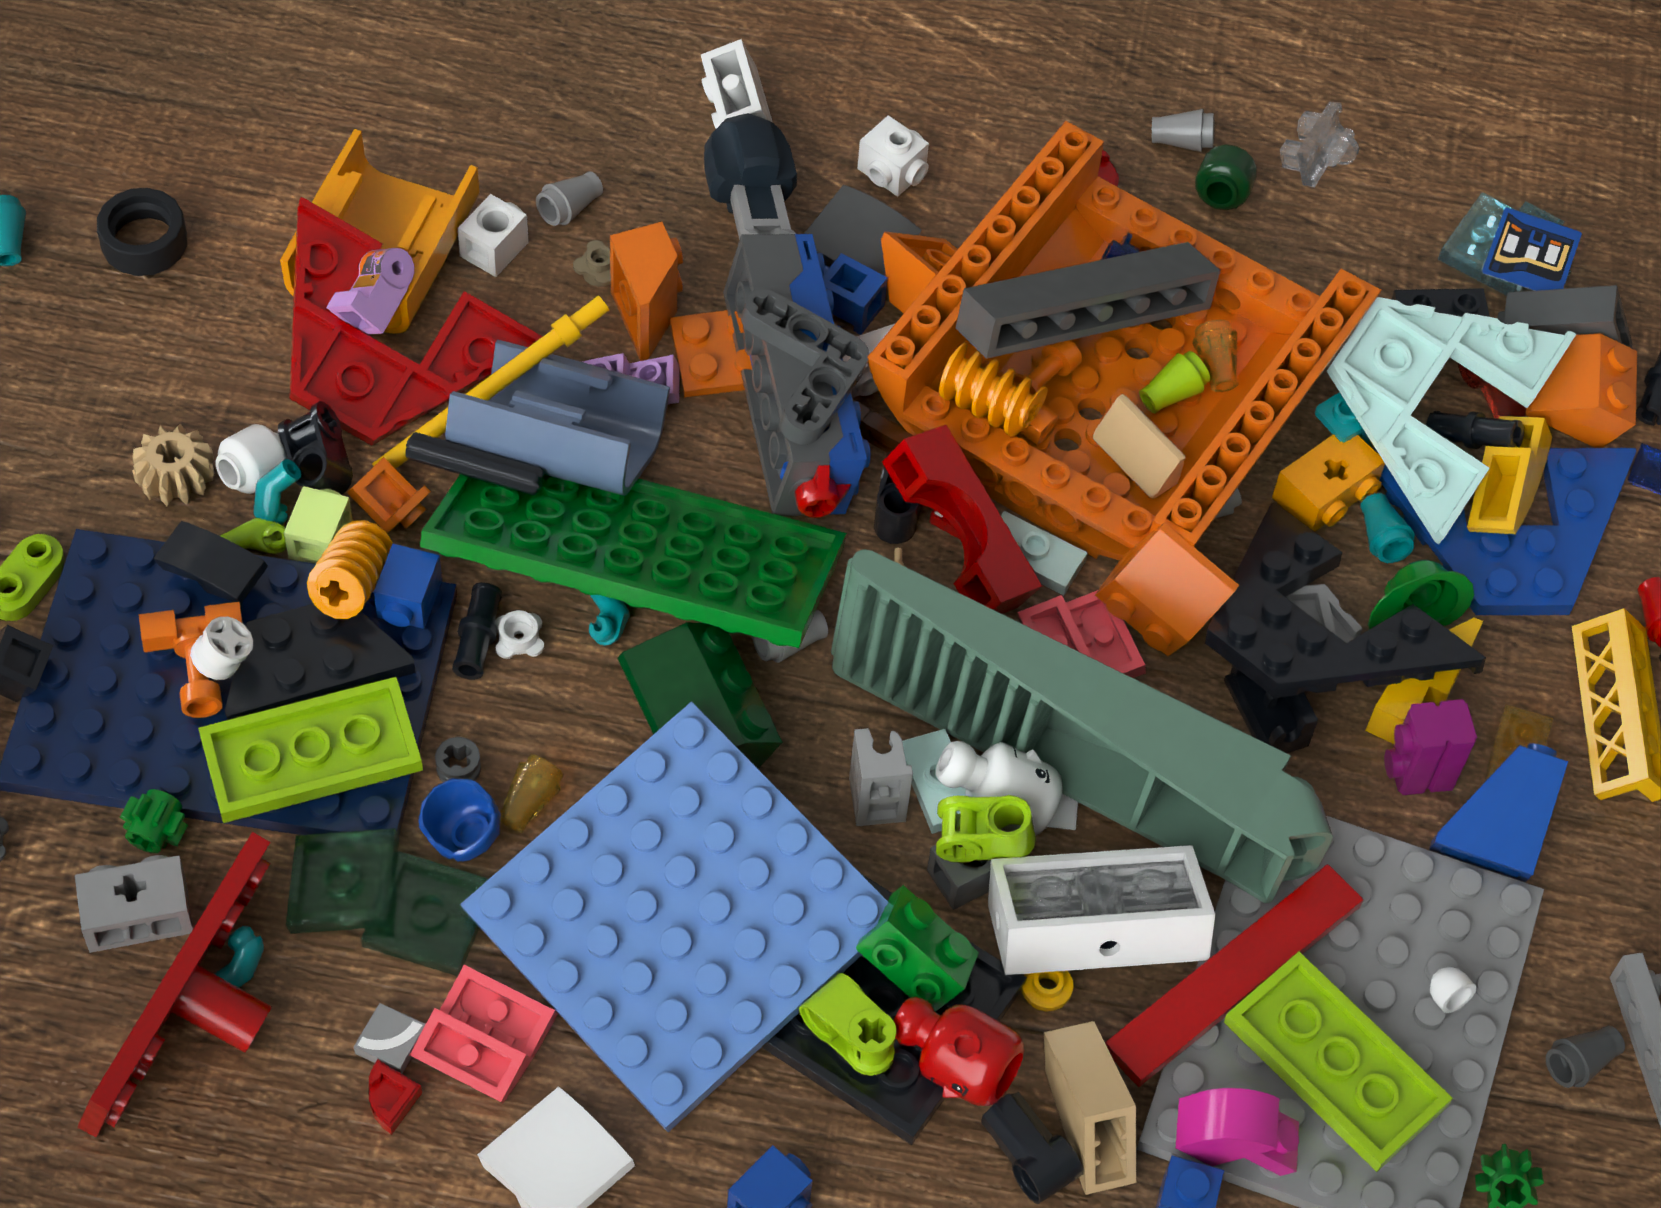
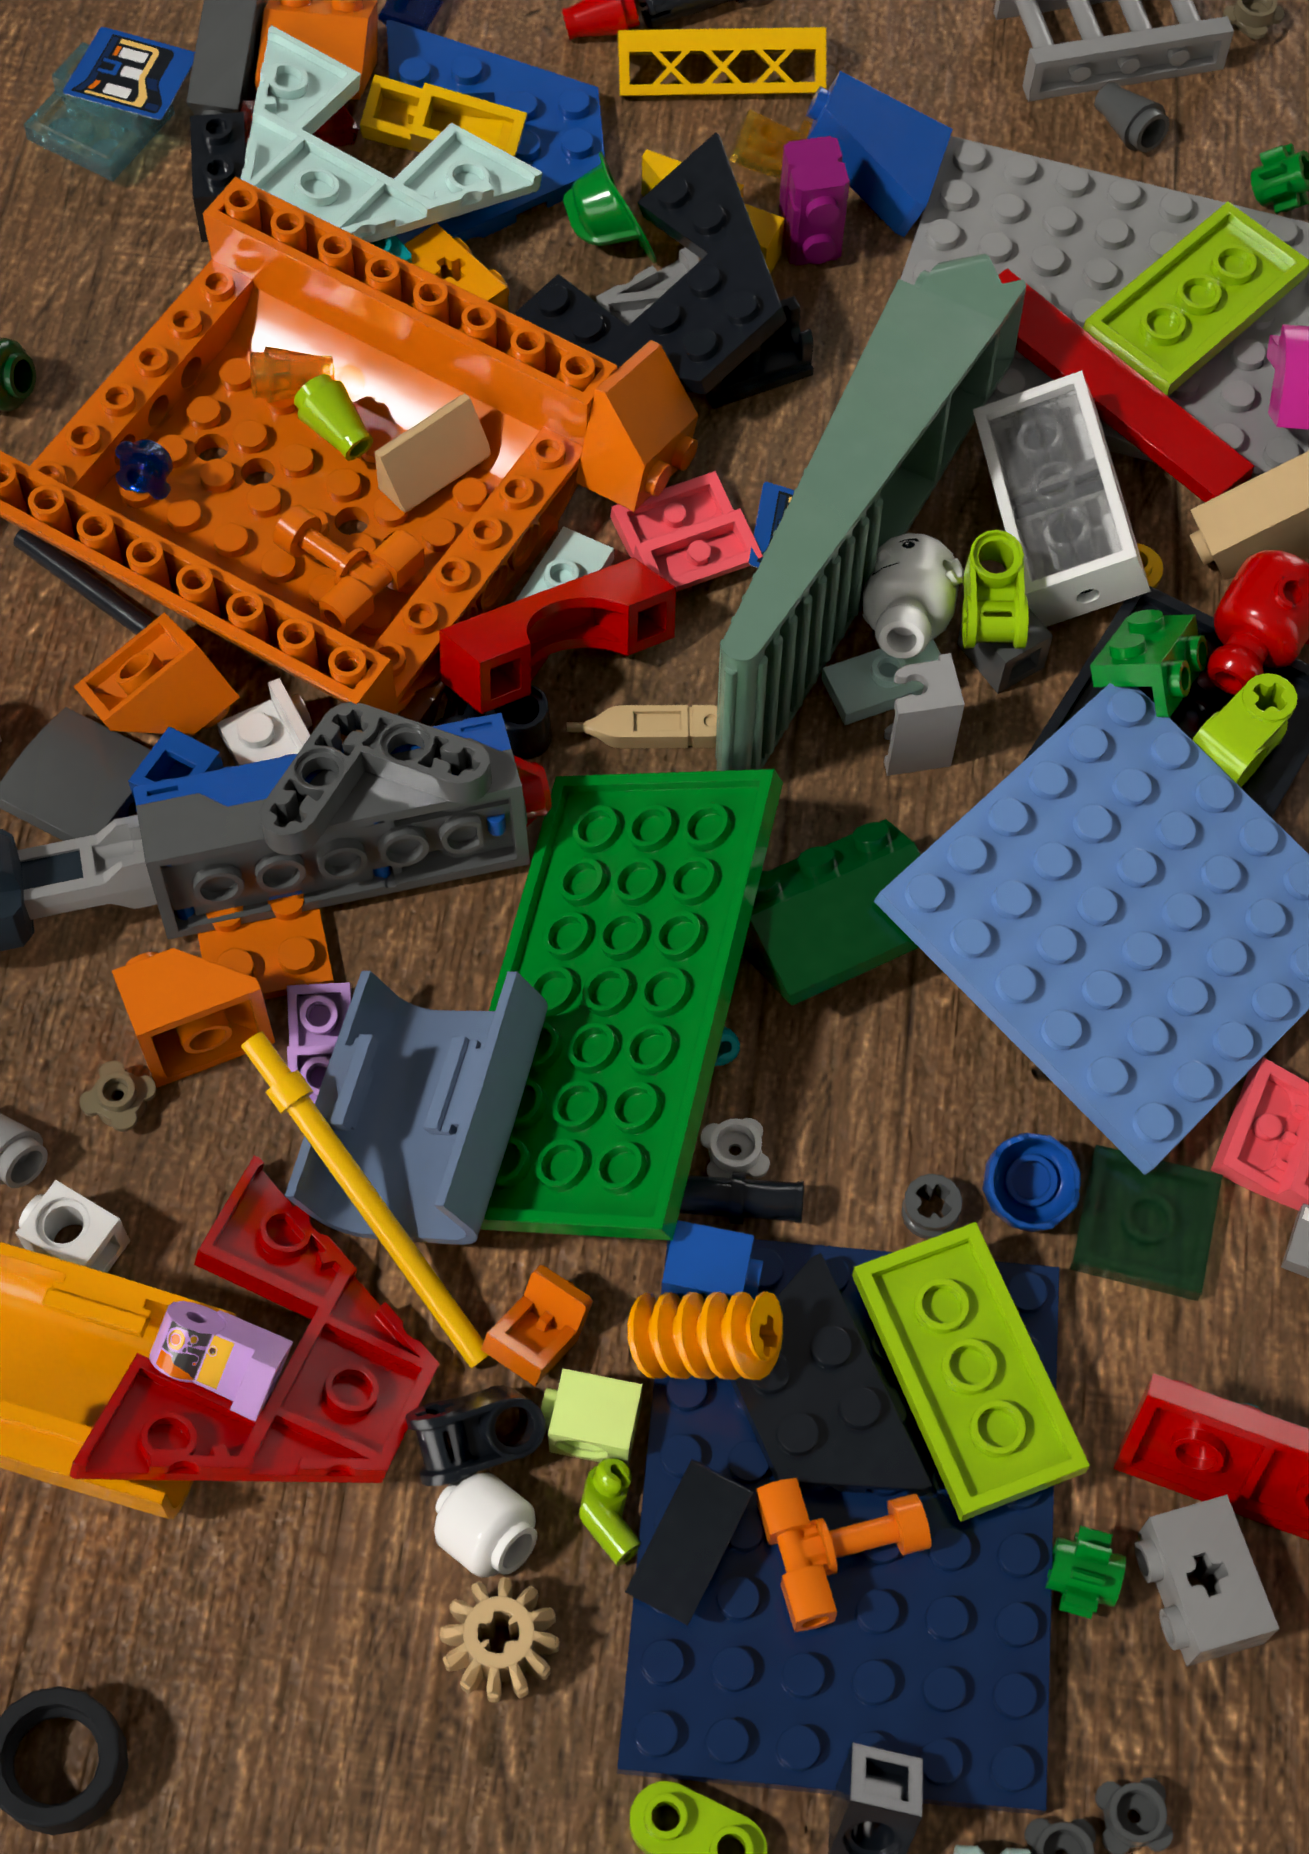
camera: 90 degrees left, 5 degrees up
(221, 648) = (853, 1488): white wheel -> none
(269, 490) = (544, 1487): teal arm -> none
(343, 881) = (1127, 1321): clear green tile -> none
(474, 463) = (510, 1199): black axle -> none
(530, 791) = (969, 1112): clear yellow cone -> none
(989, 393) = (387, 578): light orange piece -> none
(1086, 299) = (247, 478): dark grey brick -> none
(1386, 530) = (510, 242): teal cone -> none
(1451, 989) = (1097, 202): white hinge -> none
(1476, 429) = (387, 131): black pin -> none

